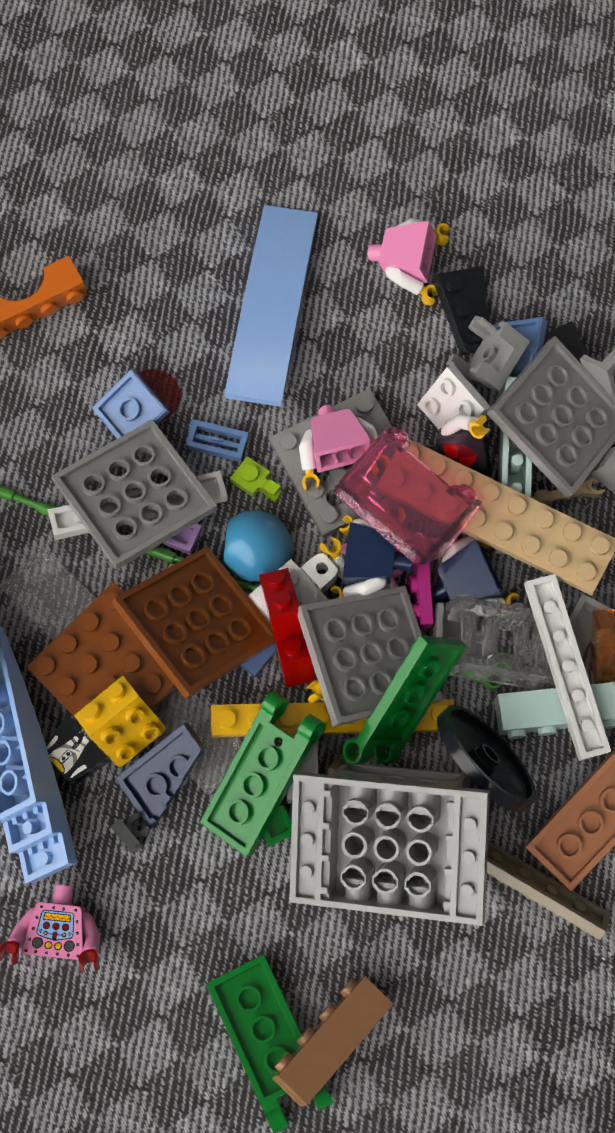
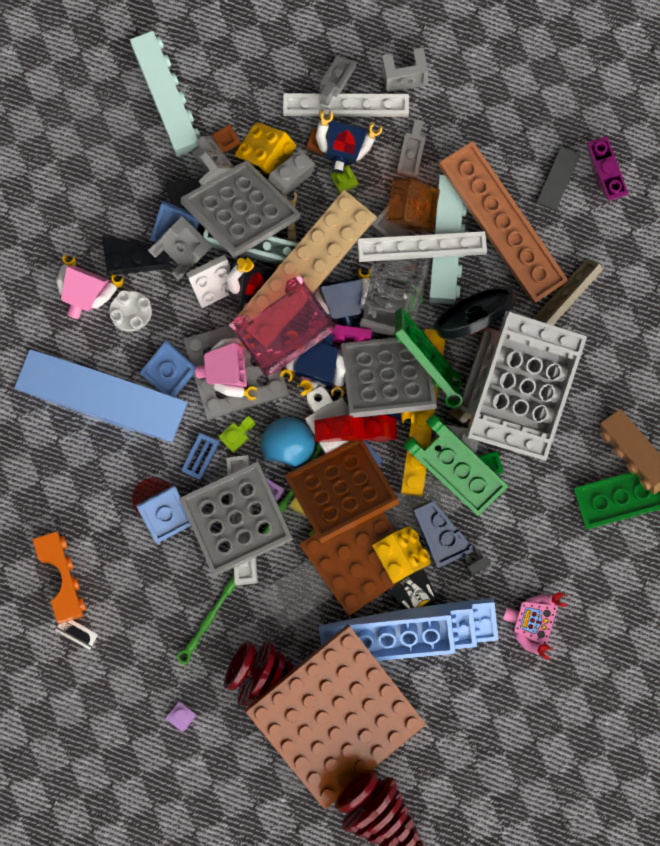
camera: 75 degrees left, 5 degrees up
(323, 377) = (168, 370): none -> medium blue tile
(393, 318) = (130, 310): none -> white dish

